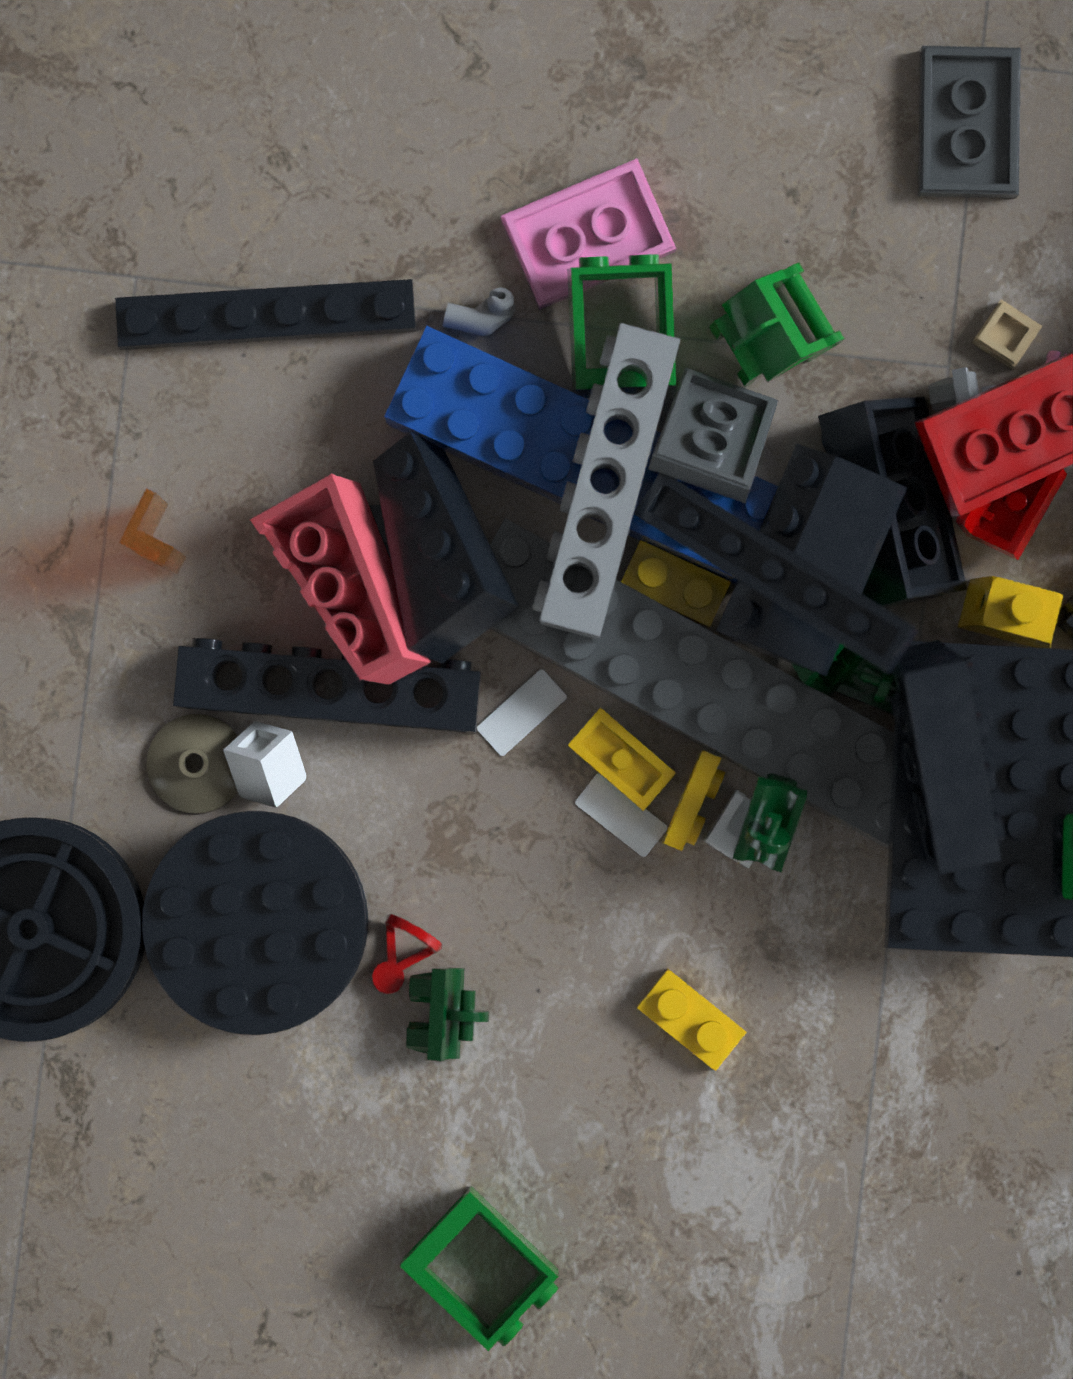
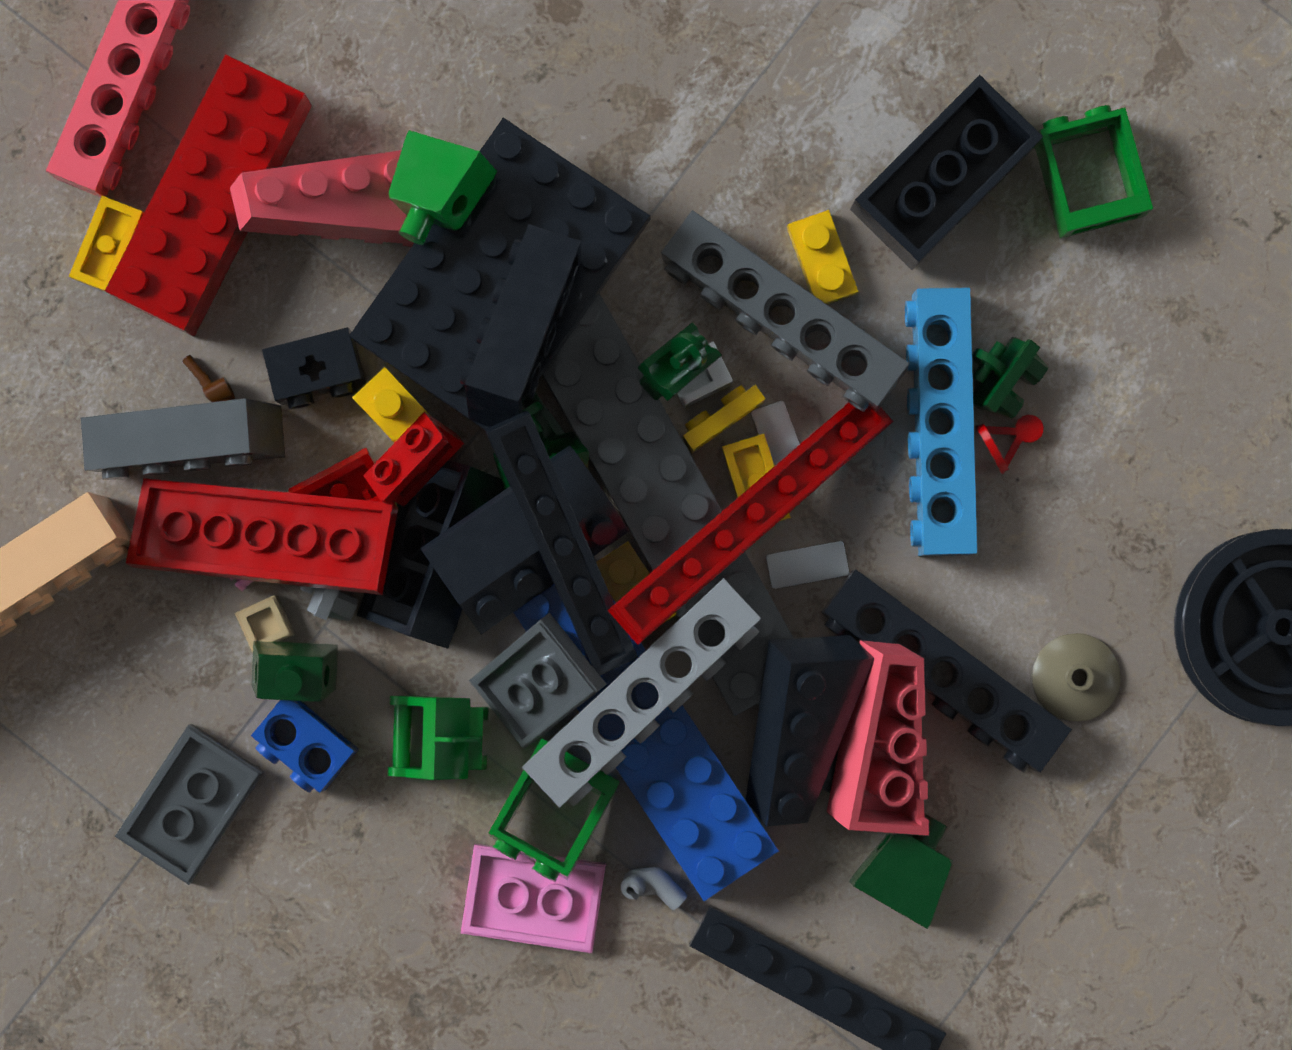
camera: 155 degrees left, 0 degrees up
(141, 529) = (1020, 873): clear orange panel -> none
(247, 473) = (906, 873): none -> dark green torso
(255, 922) = (1106, 529): black wheel -> none
(265, 764) = (1026, 643): white panel -> none
(535, 1045) = (953, 312): none -> dark azure brick
(608, 718) = (746, 520): none -> red tile
(624, 1177) = (945, 172): none -> black brick
(824, 961) = (700, 239): none -> dark grey brick
(897, 257) = (310, 733): none -> blue brick
(951, 304) = (294, 670): none -> dark green torso
(966, 571) = (412, 460): none -> red bracket

